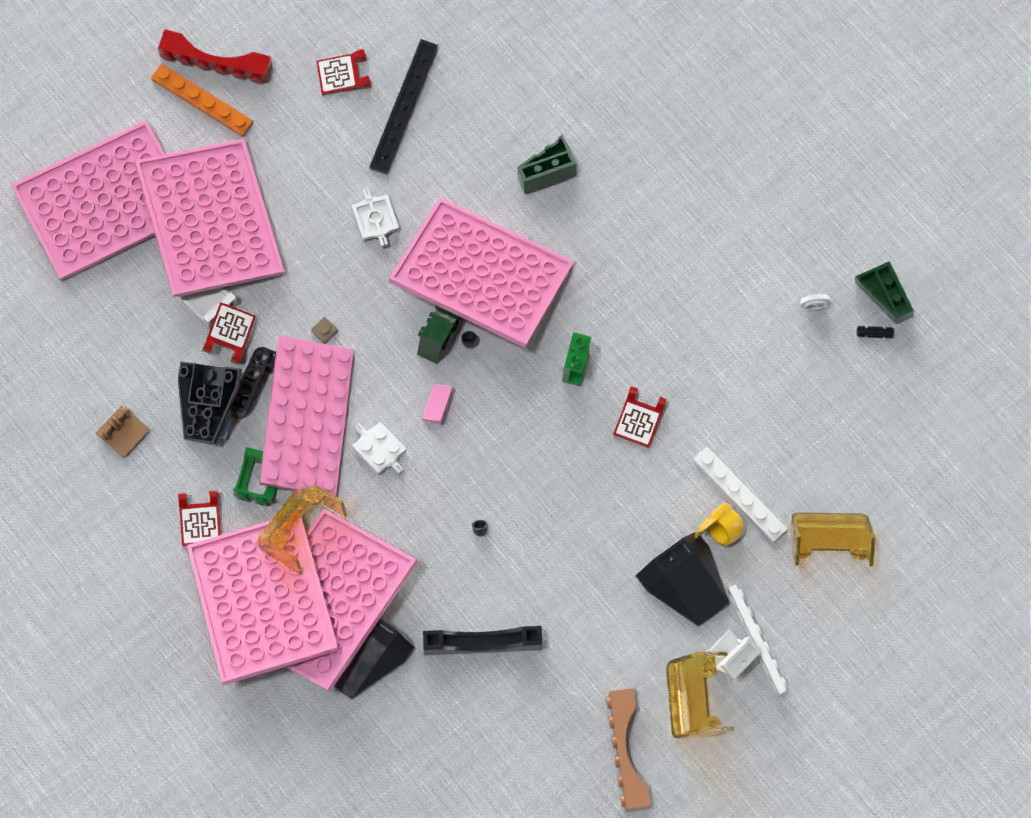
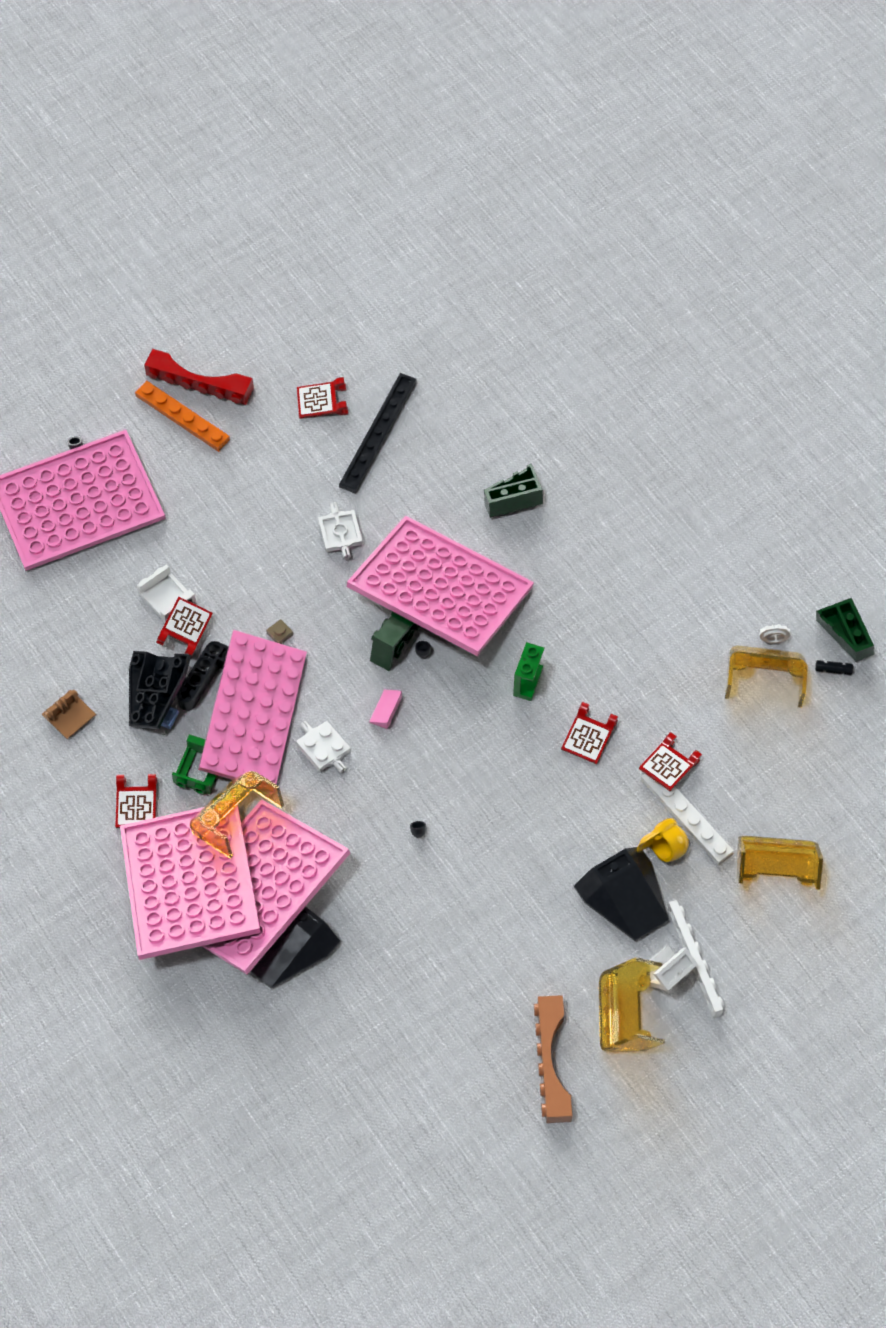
camera: 10 degrees right, 10 degrees down
(95, 137) = (74, 442): none -> black hinge
(208, 217) = (176, 520): bright pink plate -> none
(454, 642) = (380, 938): black arch -> none
(718, 445) = (667, 764): none -> flag
(786, 327) = (743, 656): none -> clear yellow windscreen

